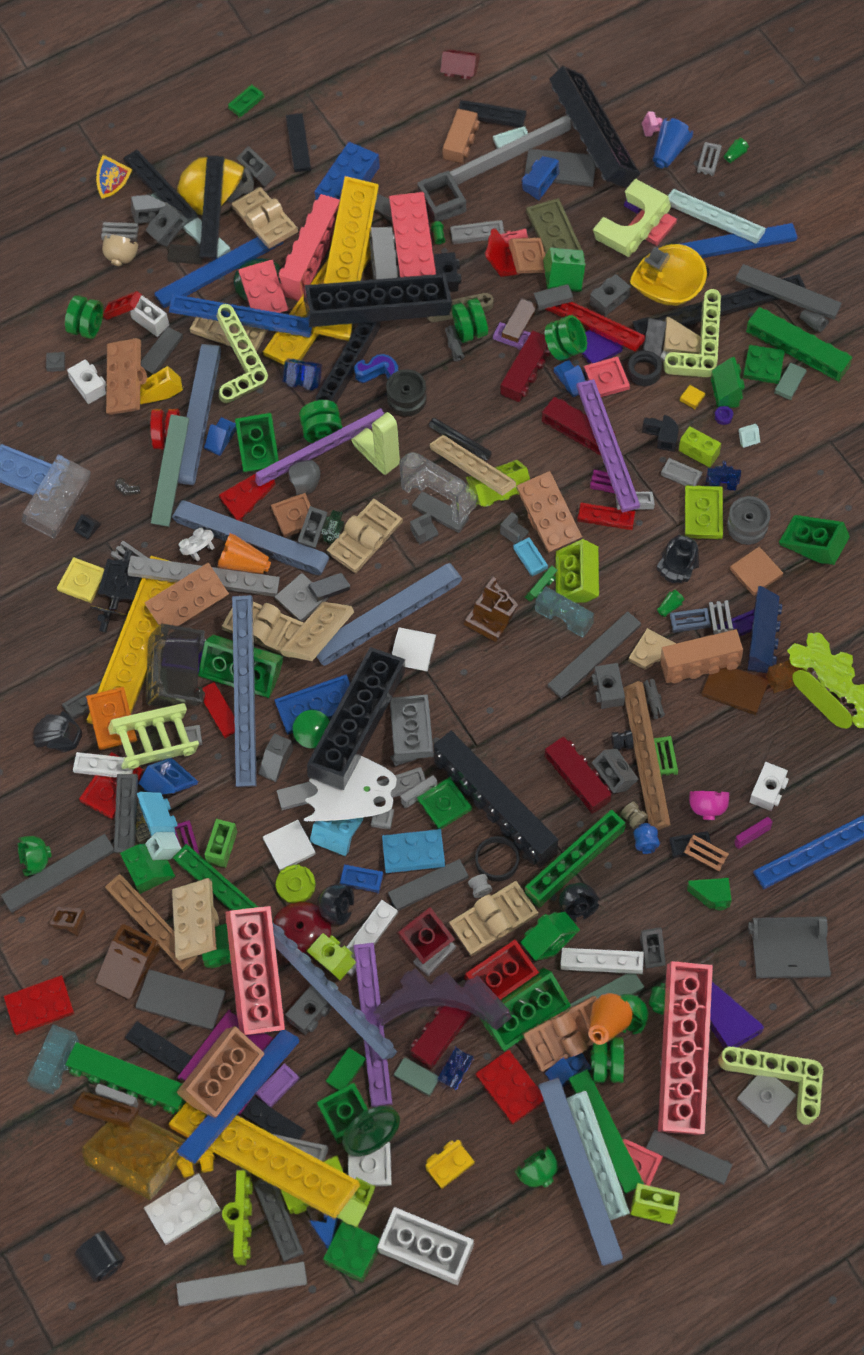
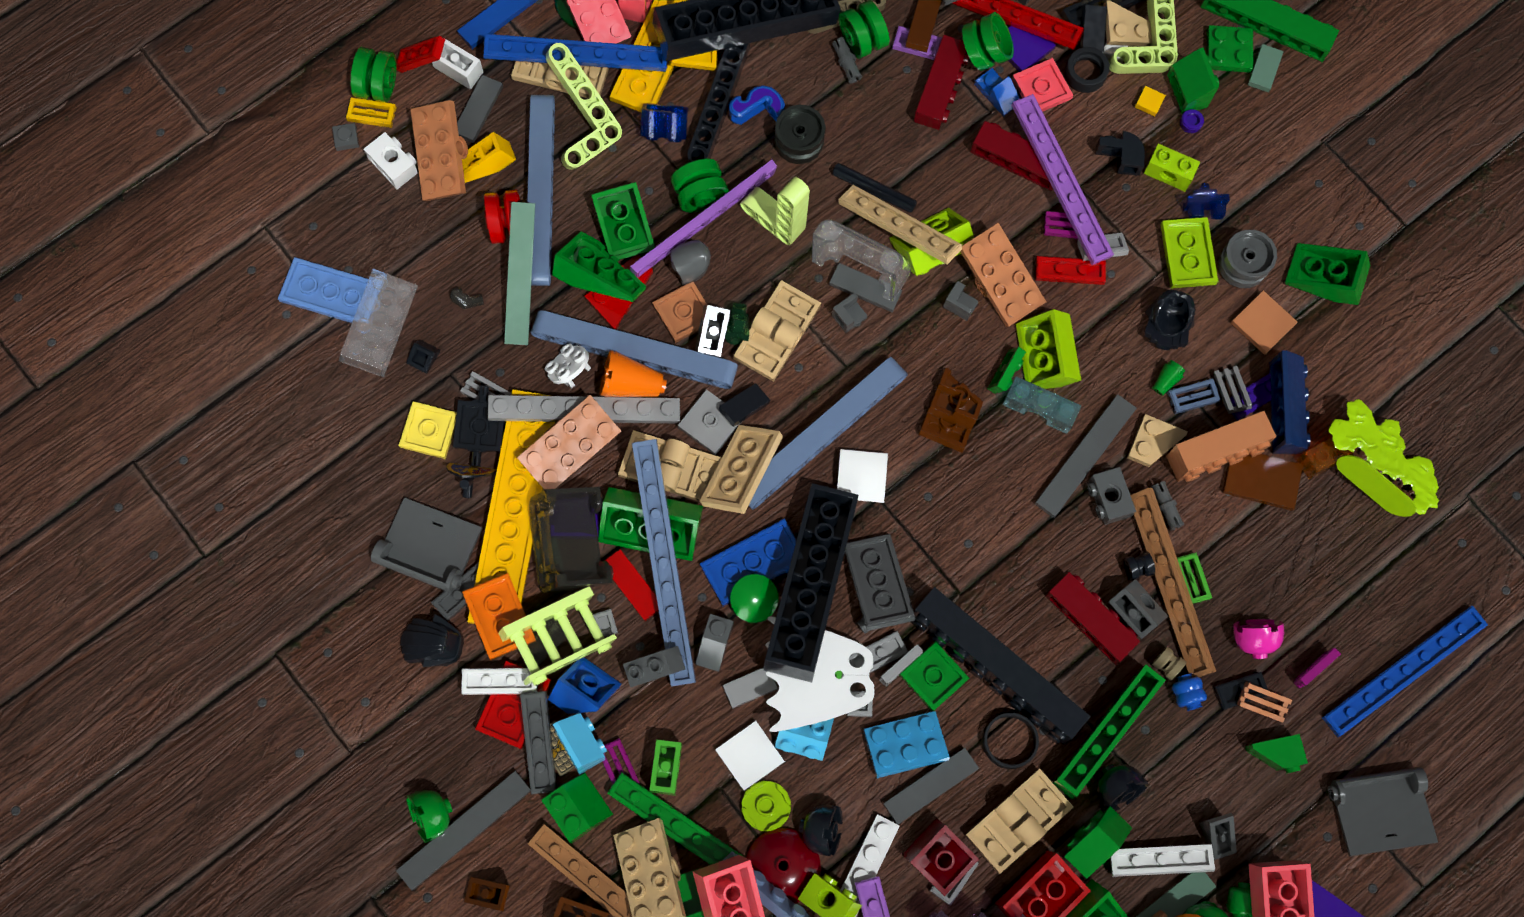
camera: 15 degrees left, 10 degrees up
(66, 662) = (426, 550): none -> dark grey door
(76, 348) = (389, 117): none -> yellow tile
(163, 845) = (593, 780): light aqua brick -> none
(219, 436) = (572, 215): blue slope -> none
(224, 767) = (654, 666): none -> dark grey brick
(225, 472) = (589, 267): none -> green wedge
(362, 878) = (848, 789): blue plate -> none
(480, 886) = (996, 780): light grey wheel -> none
(530, 556) = (986, 334): medium azure tile -> none
(681, 473) = (1152, 203): light grey tile -> none
(749, 435) = (1228, 145): light aqua tile -> none
(772, 776) = (1316, 615): white brick -> none

